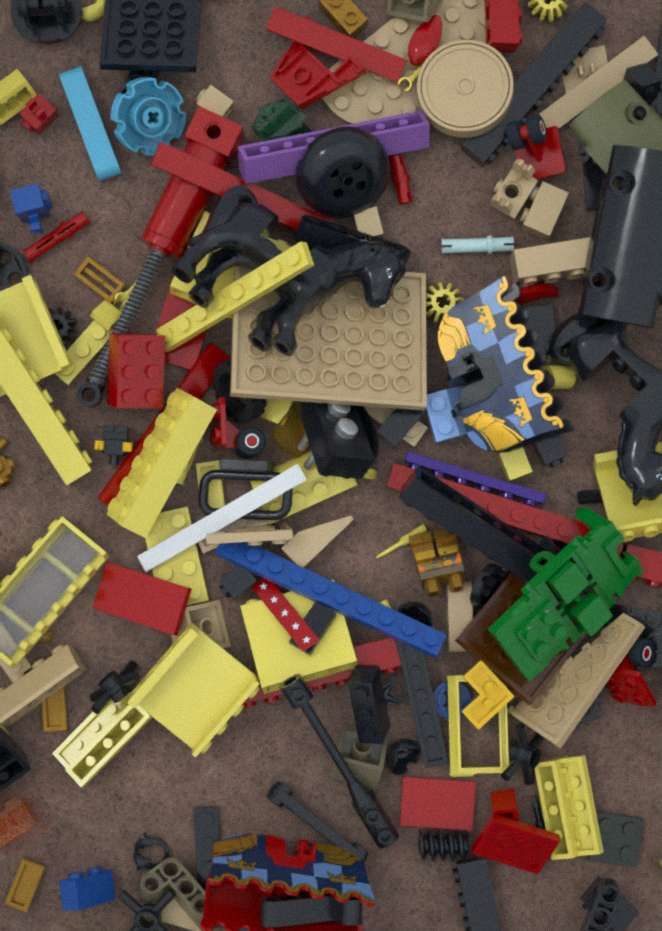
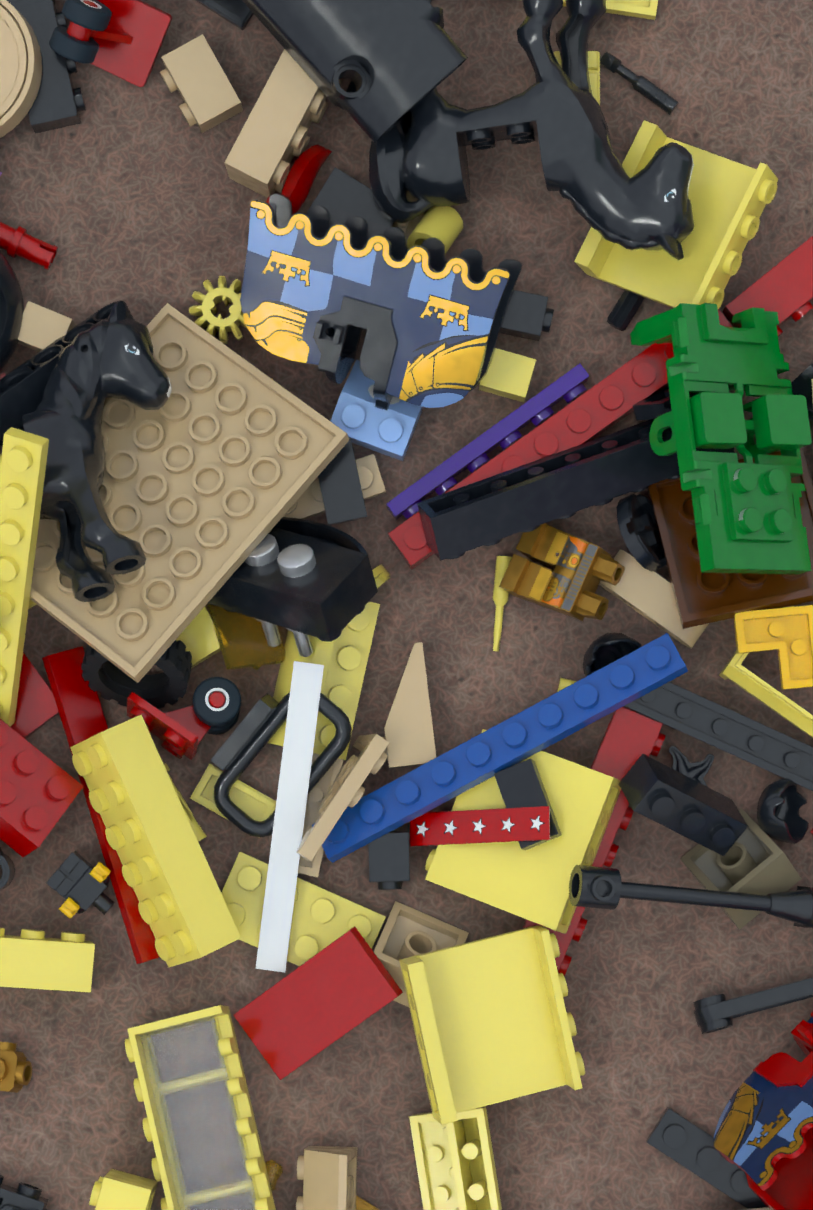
camera: 45 degrees left, 0 degrees up
(114, 687) = (408, 1127): black bar -> none
(440, 699) = (745, 705): blue gear -> none
(478, 245) = (181, 205): light aqua pin -> none
(521, 181) = (140, 85): tan piece -> none

